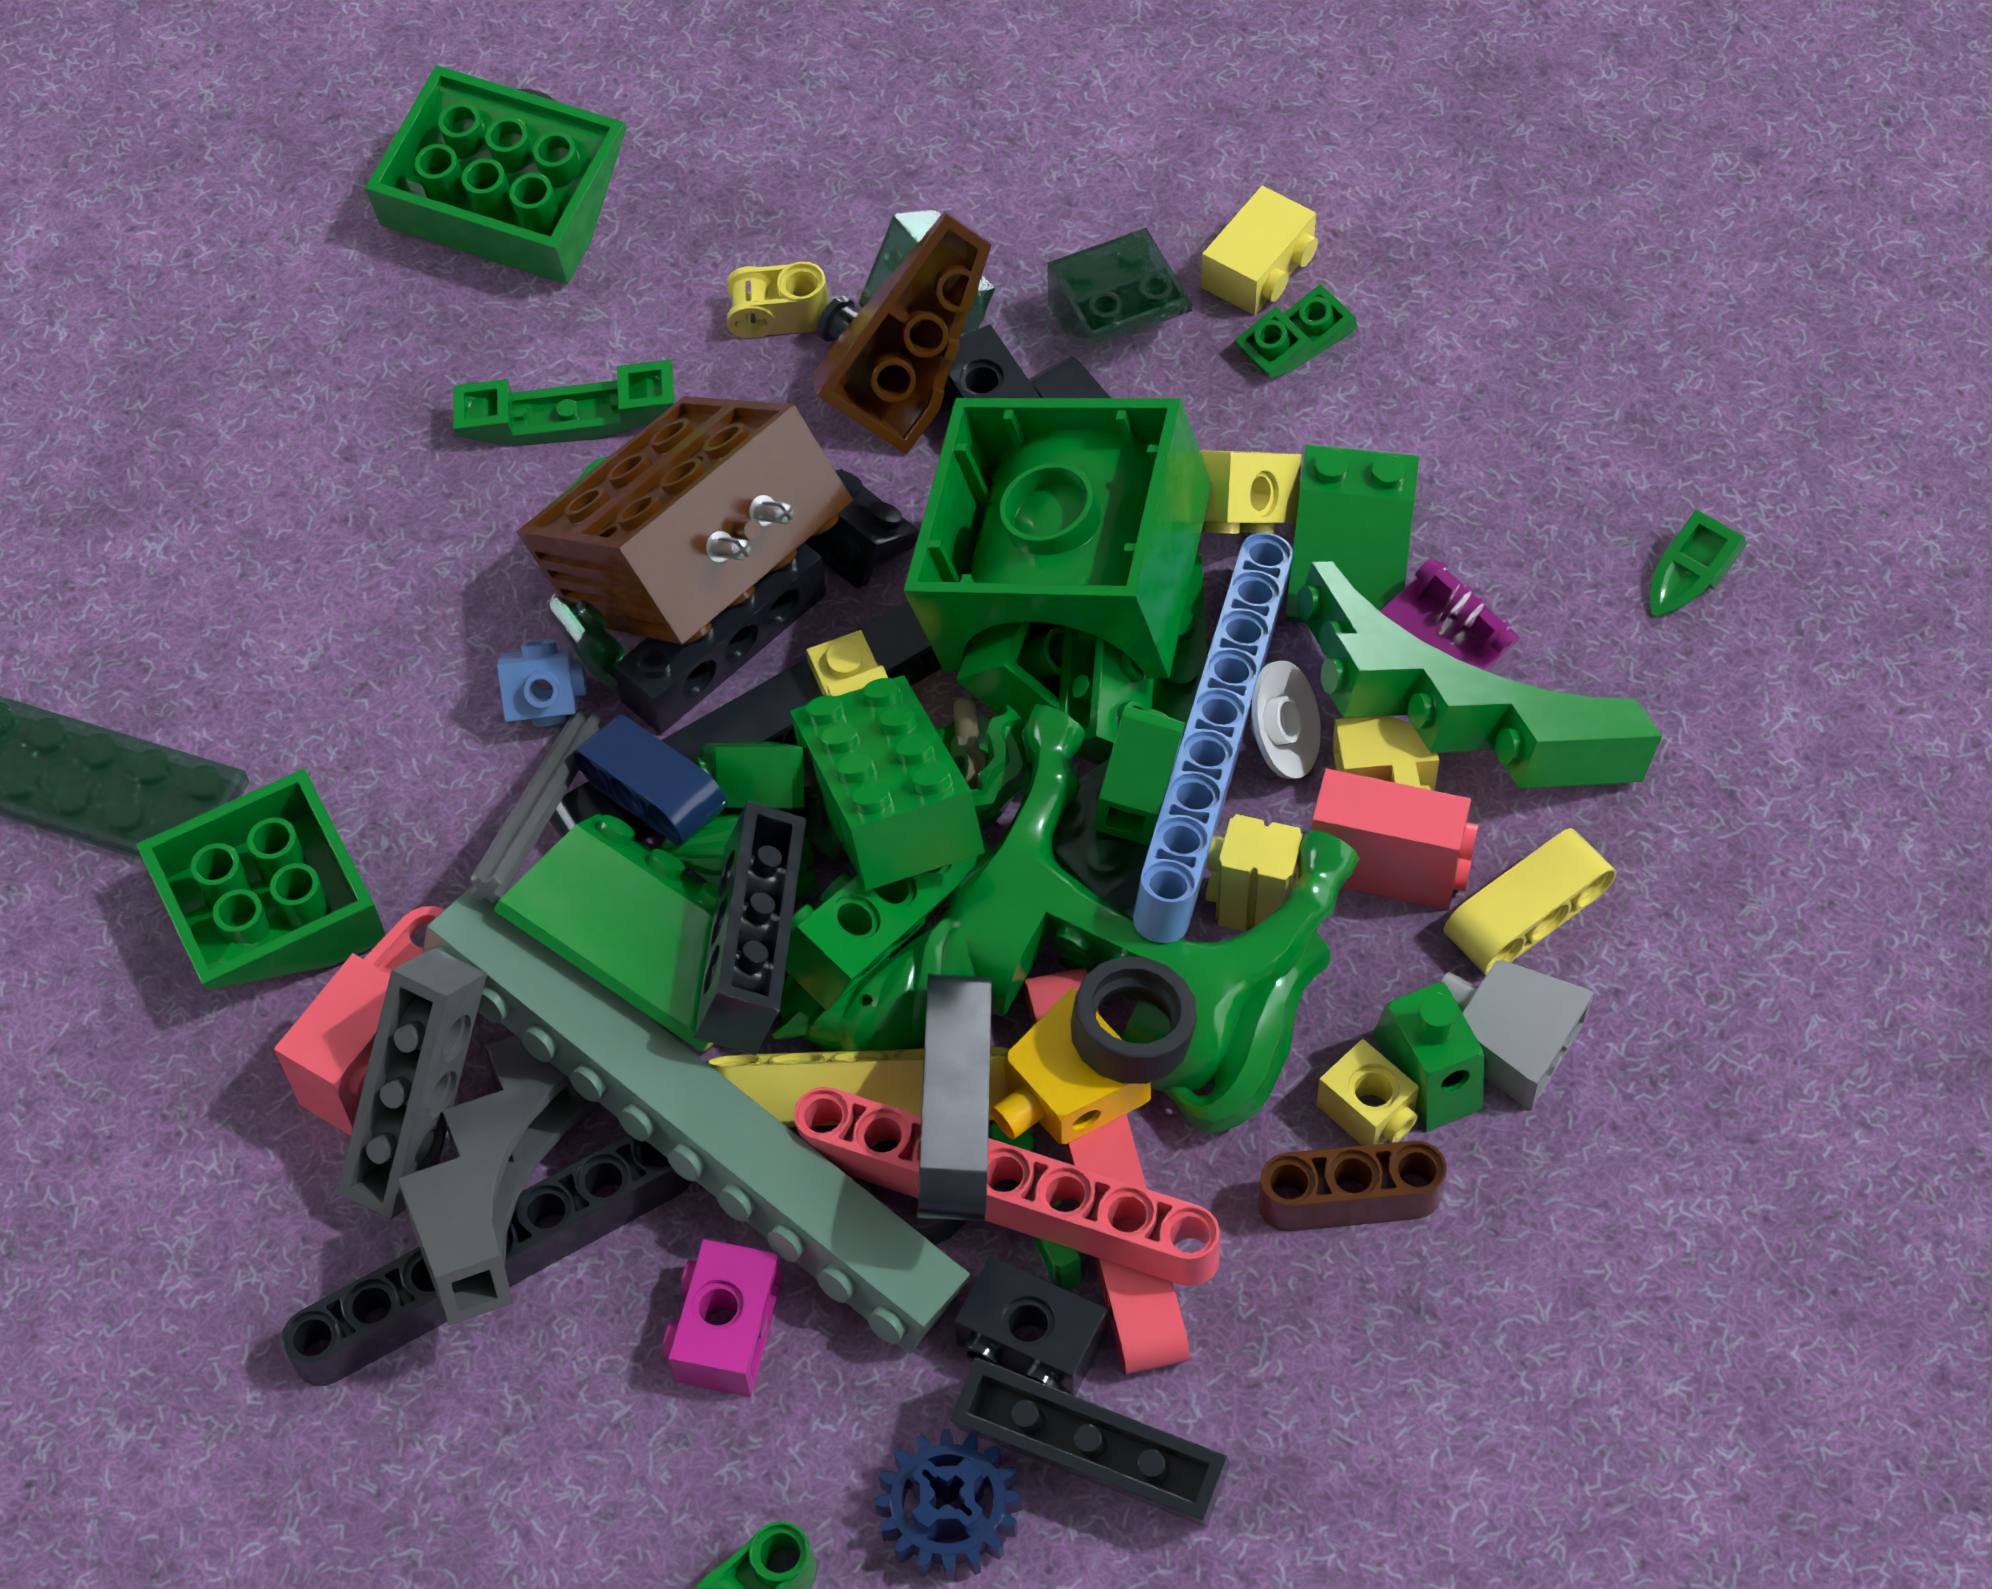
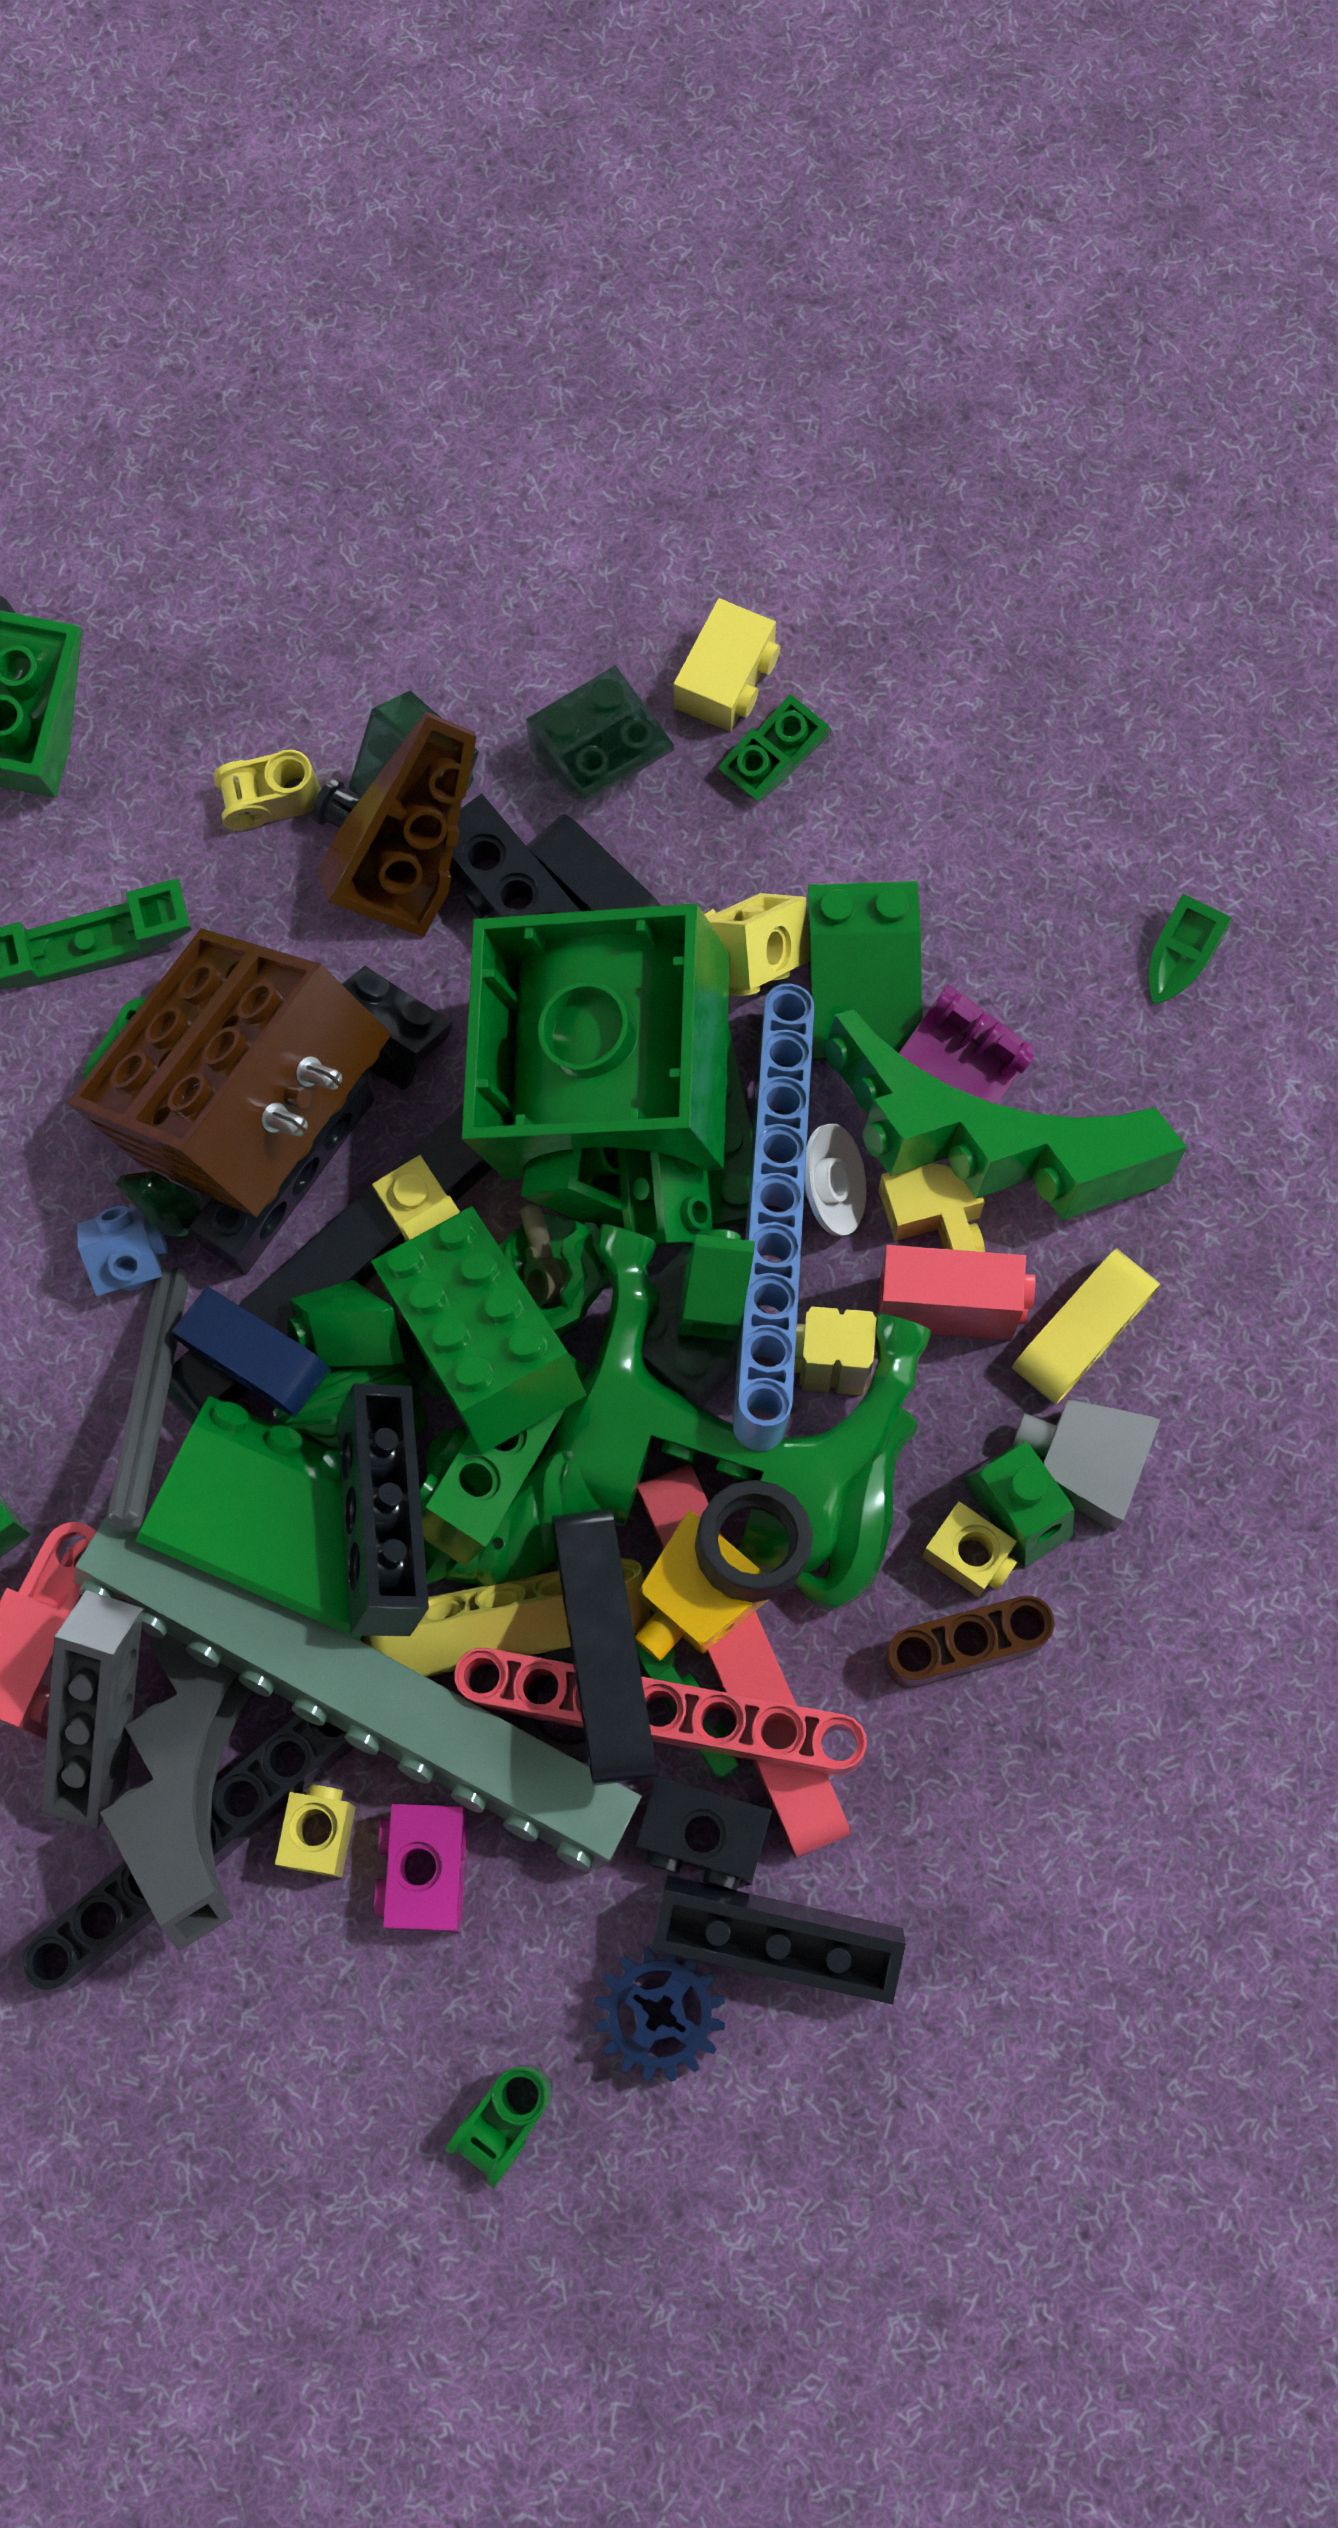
camera: 10 degrees left, 15 degrees up
(623, 1289) = (328, 1857): none -> light yellow brick

